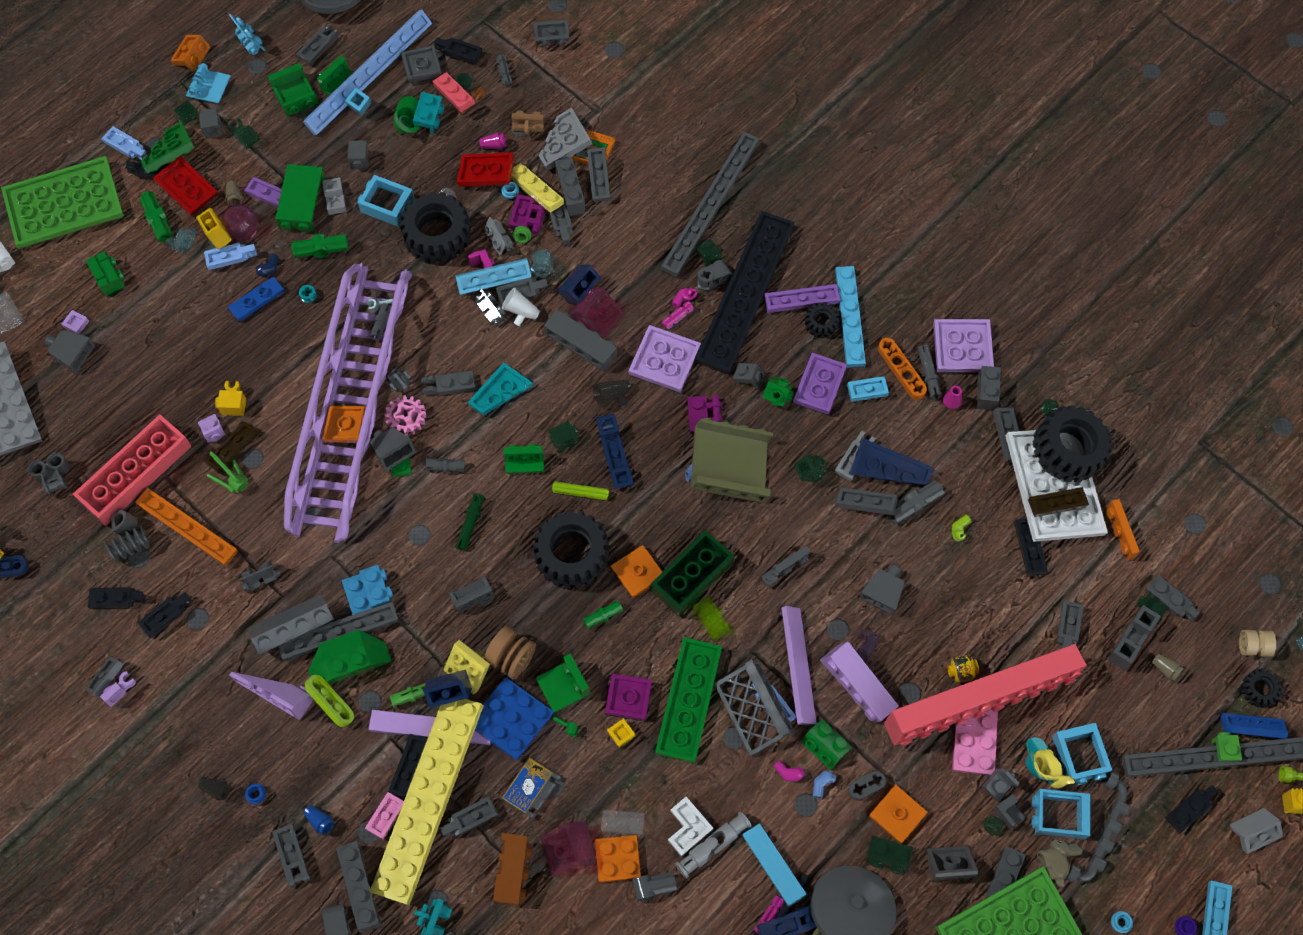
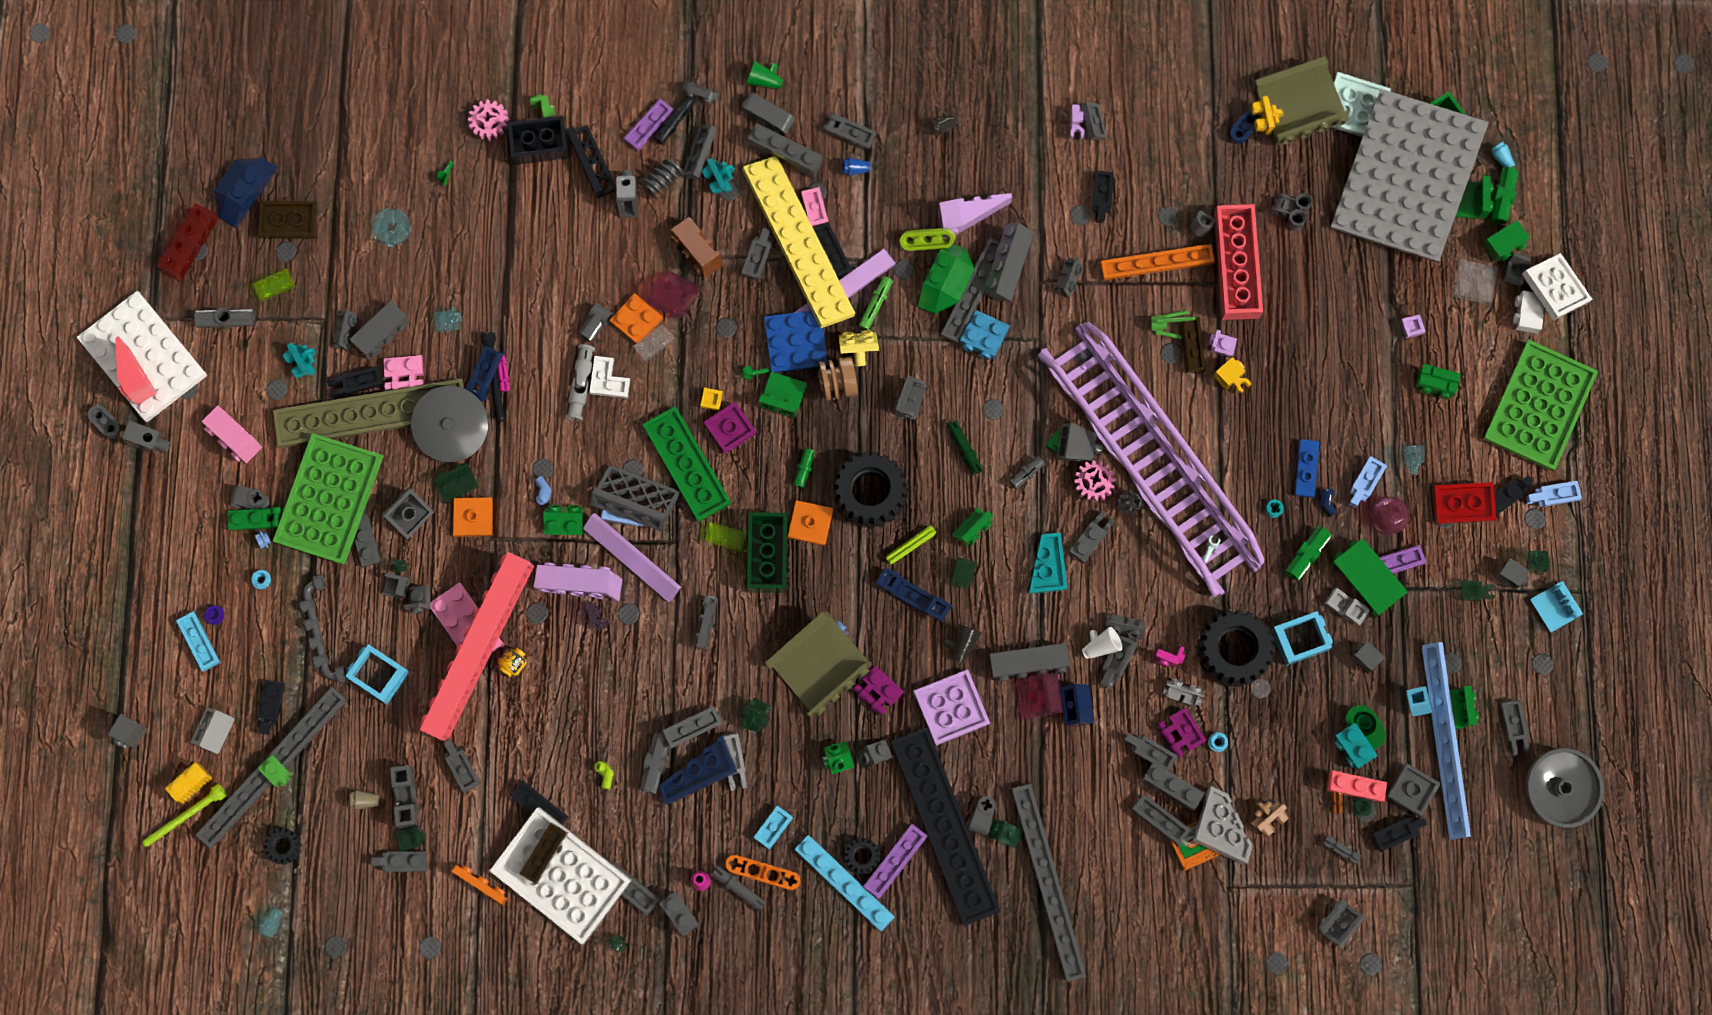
camera: 135 degrees right, 10 degrees up
(69, 349) = (1390, 302): dark grey torso -> none
(114, 598) = (1150, 175): black hinge -> none
(128, 544) = (1180, 212): dark grey piece -> none
(155, 216) = (1457, 459): green piece -> none
(175, 143) = (1513, 519): green plate -> none
(191, 52) = (1605, 621): orange bracket -> none
(213, 228) = (1398, 485): yellow brick -> none
(233, 194) = (1422, 532): dark tan cone -> none
(246, 36) = (1578, 677): medium azure hinge -> none
(249, 794) = (914, 140): blue plate -> none
(292, 89) = (1484, 666): green panel -> none
(343, 424) = (1130, 432): orange plate -> none
(380, 322) = (1192, 534): dark grey pin -> none
(447, 688) = (853, 313): dark blue brick -> none
(485, 169) = (1254, 738): red plate -> none
(493, 141) = (1276, 773): dark pink cone -> none
(493, 276) = (1146, 648): medium azure fence -> none
(522, 234) = (1166, 709): bright green plate -> none
(530, 787) = (738, 311): piece -> none
(536, 188) = (1198, 759): light yellow plate -> none
(542, 263) = (1124, 698): clear light blue head -> none
(678, 315) = (978, 755): dark pink axle -> none
(684, 295) = (990, 778): dark pink arm -> none
(774, 865) = (527, 406): medium azure tile -> none
(789, 774) = (572, 475): dark pink arm -> none
(820, 383) = (814, 798): medium lavender plate -> none
(864, 781) = (506, 515): dark grey beam -> none
(884, 590) = (619, 670): dark grey torso -> none
(962, 344) = (731, 938): lavender plate -> none
(1044, 764) = (396, 639): light yellow hair -> none
(1055, 860) = (338, 580): dark tan animal -> none
(1058, 458) = (545, 912): black tyre -> none
(1083, 813) = (334, 615): medium azure window -> none
(1254, 725) = (267, 809): blue plate -> none
(1262, 643) = (309, 878): tan wheel -> none

